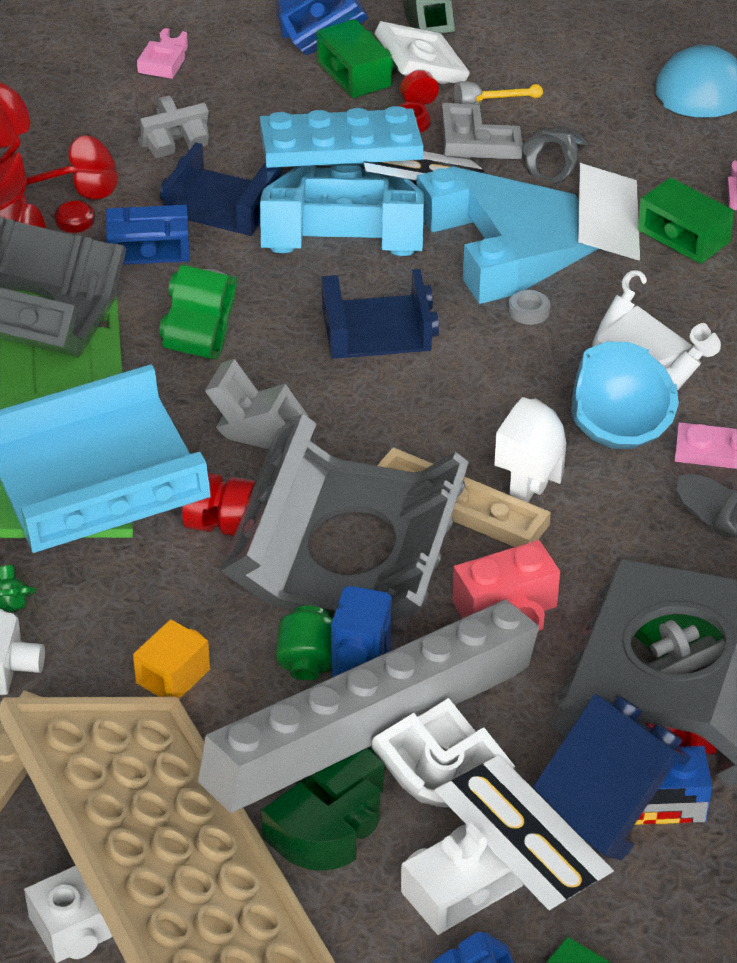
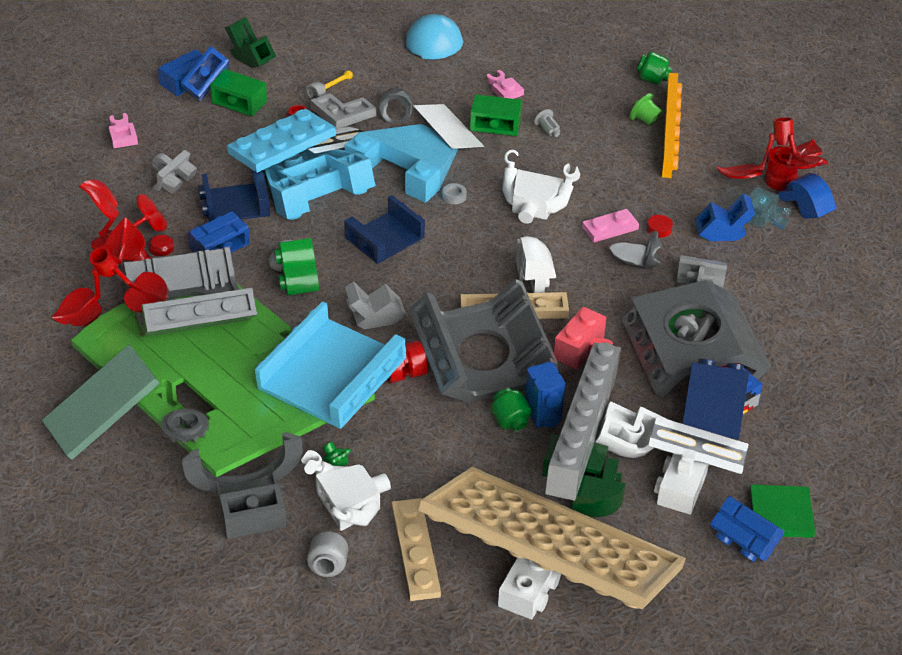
camera: 35 degrees left, 0 degrees up
(172, 660) = (454, 450): light orange brick -> none
(419, 87) = (288, 96): red piece -> none
(421, 50) = (275, 76): white plate -> none
(622, 396) = (553, 218): medium azure cylinder -> none

